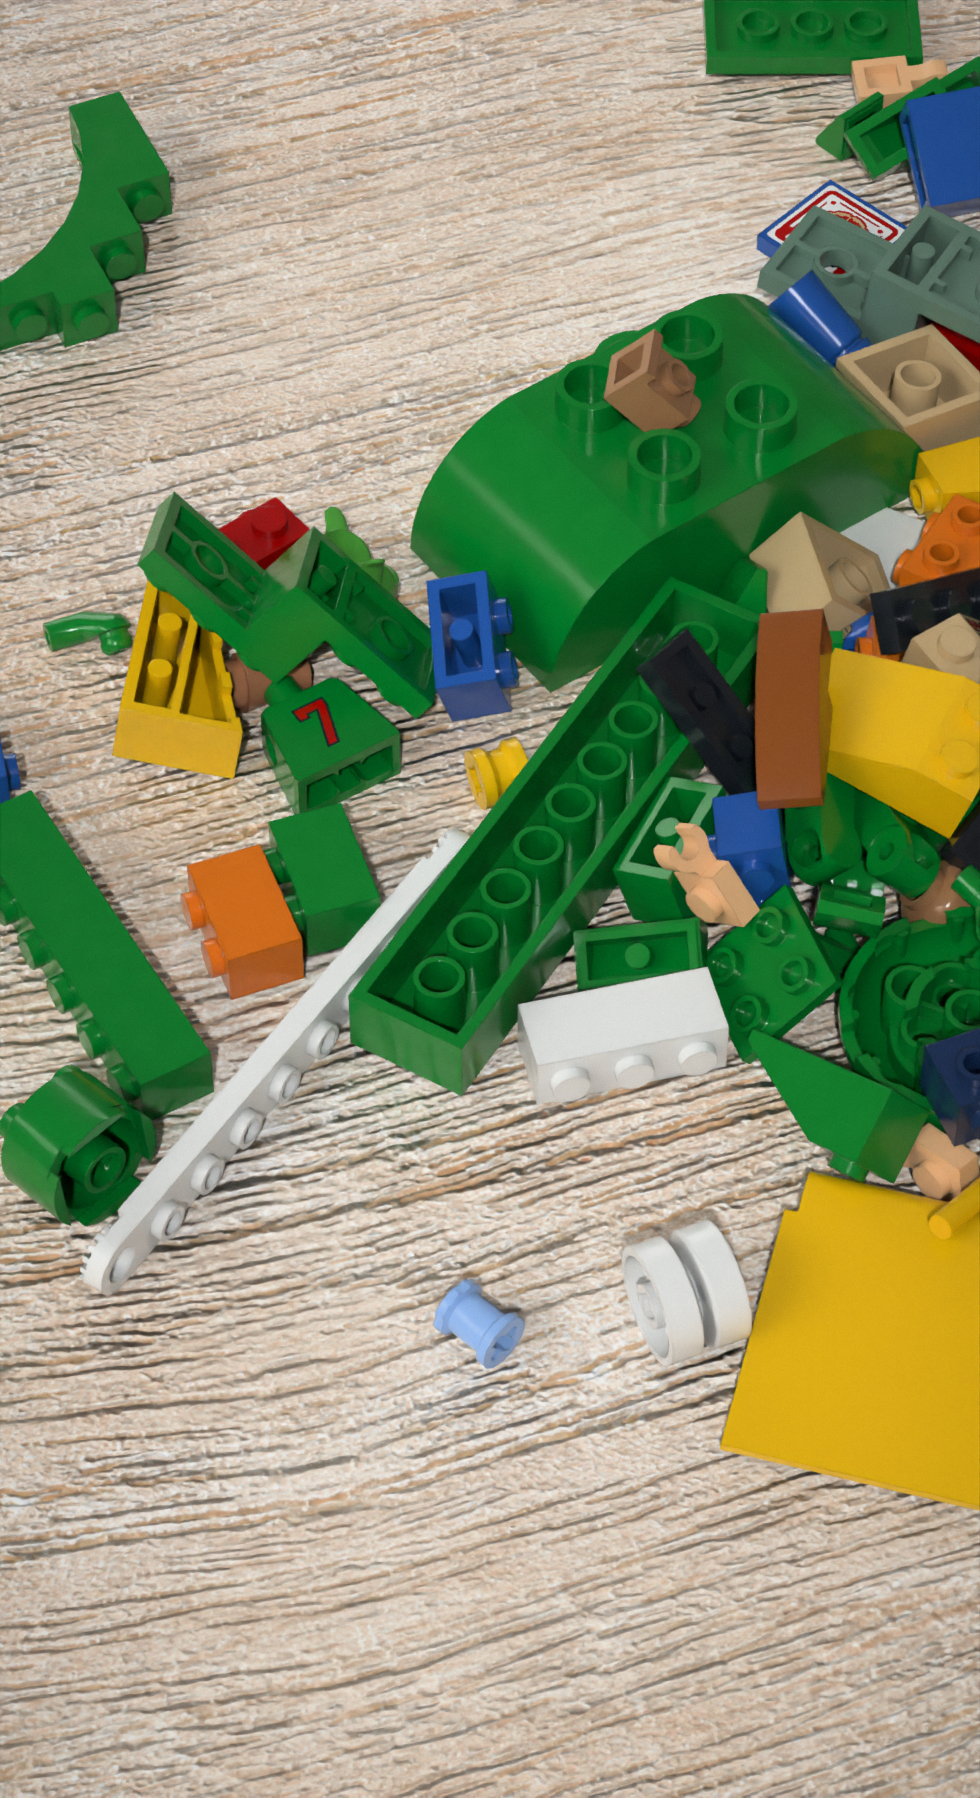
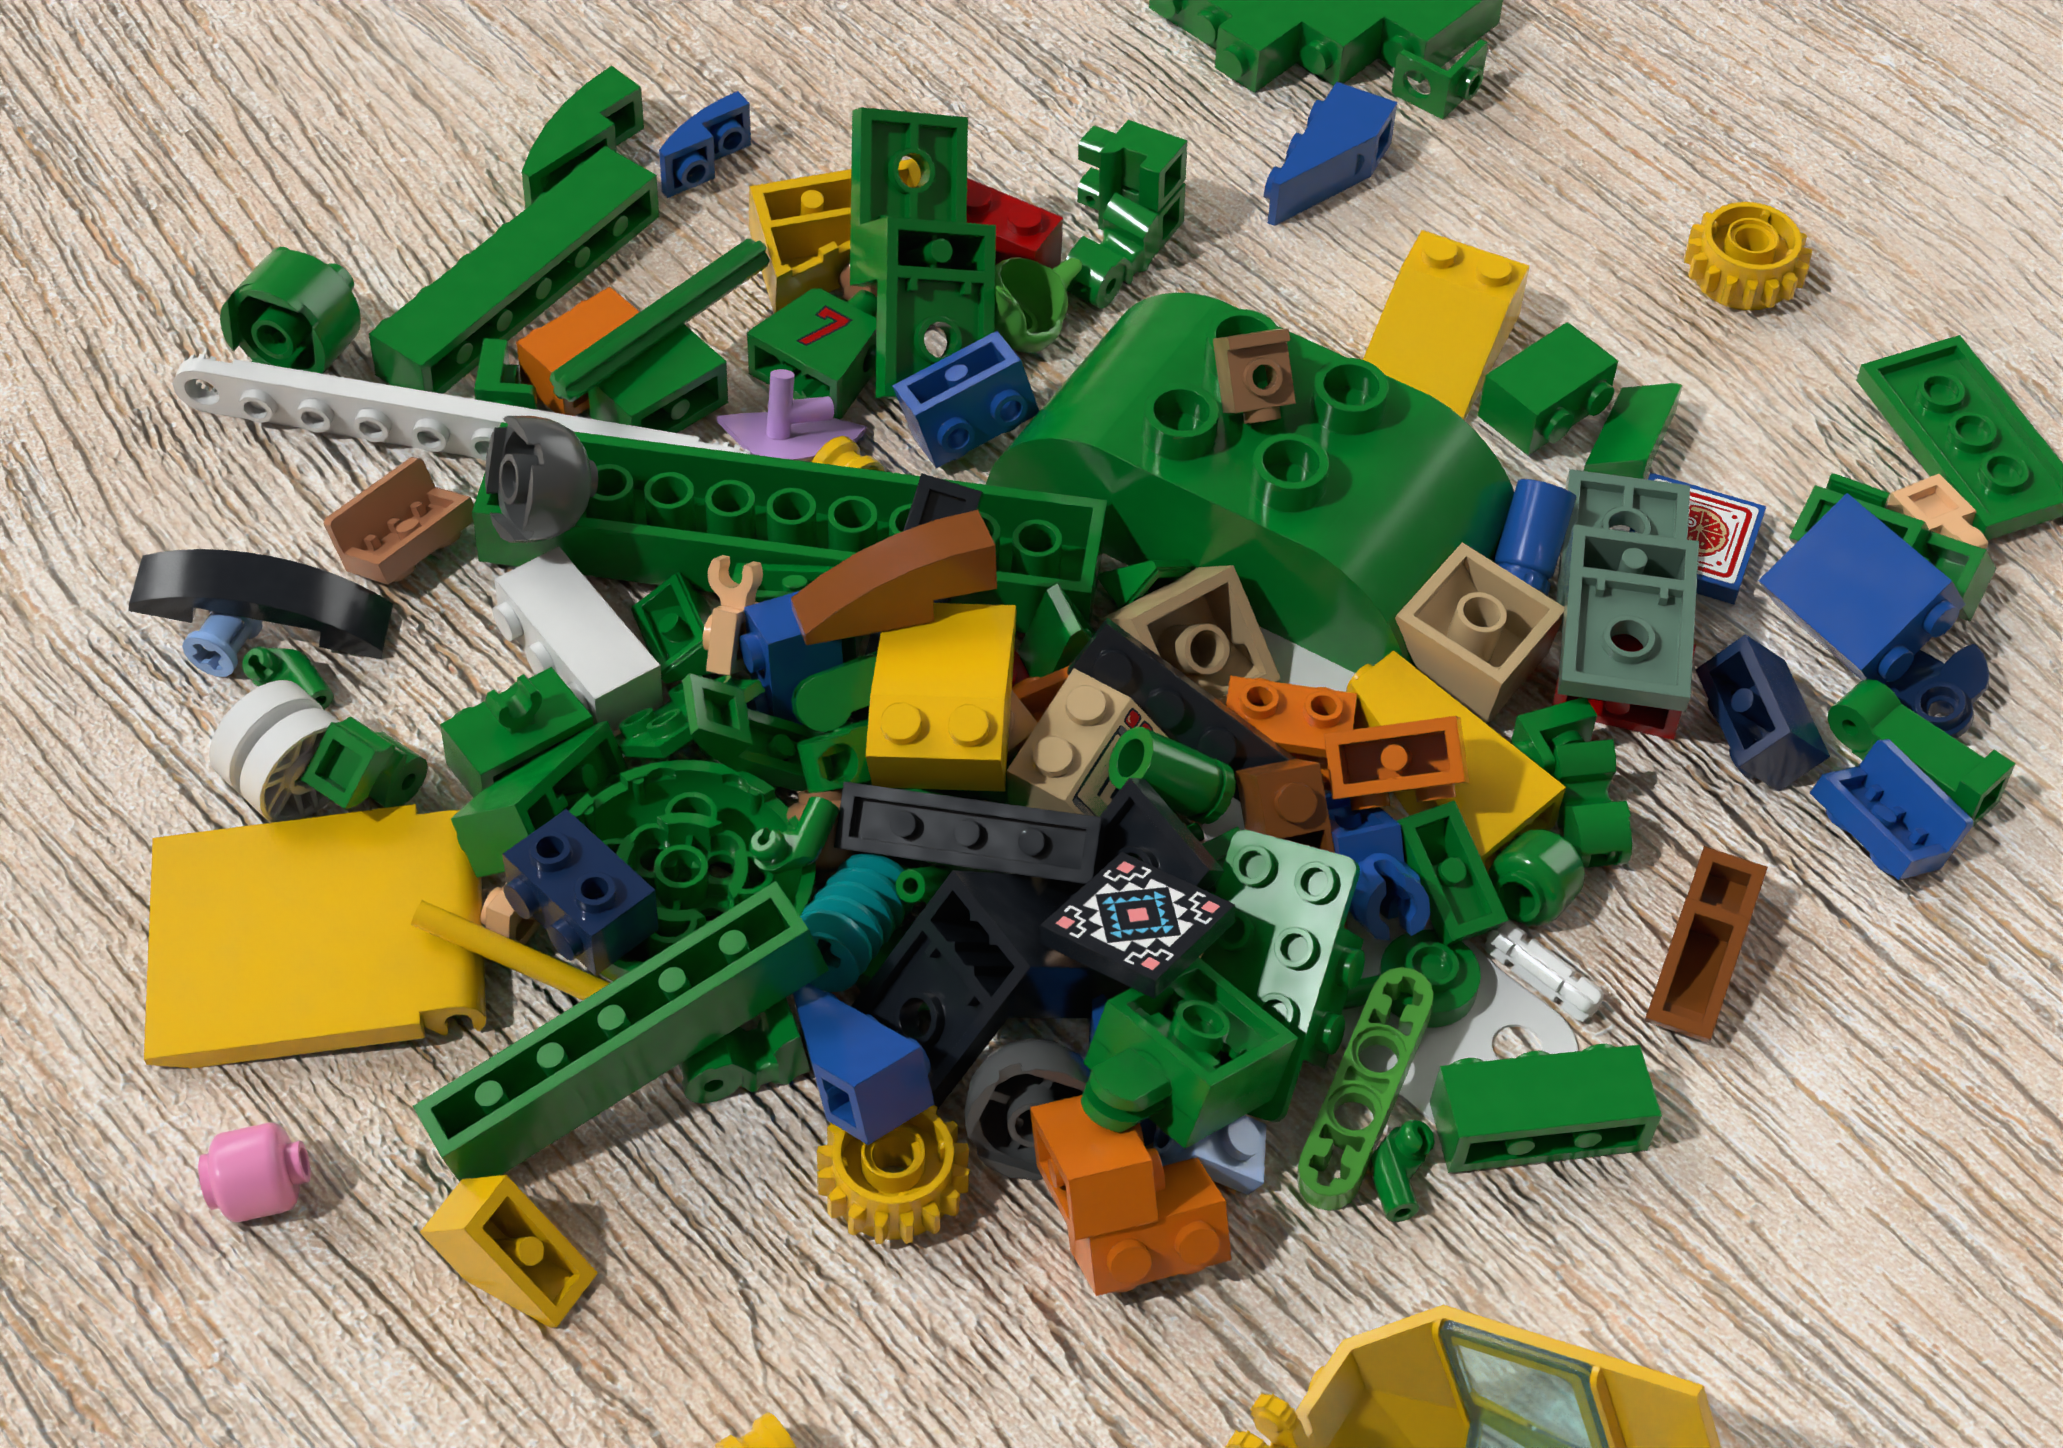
camera: 65 degrees right, 0 degrees up
(208, 178) = (1446, 87): none -> green bracket
(240, 435) = (1141, 167): none -> green hips
(240, 1012) = (499, 380): none -> green bracket
(246, 286) = (1336, 151): none -> blue slope
(271, 832) = (659, 320): none -> green axle
(292, 475) = (1126, 249): none -> green leg
(405, 1138) = (397, 523): none -> nougat bracket
(422, 800) = (790, 427): none -> lavender shield
(450, 1277) = (264, 590): none -> black slope
(487, 968) = (538, 477): none -> dark grey cylinder
(517, 297) = (1447, 319): none -> yellow slope
(538, 77) = (1747, 256): none -> yellow gear
(547, 1281) = (276, 664): none -> green arm
(643, 256) = (1548, 388): none -> green brick
(703, 226) = (1634, 430): none -> green slope
(725, 1114) = (511, 729): none -> green brick
(748, 1224) = (364, 763): none -> green leg

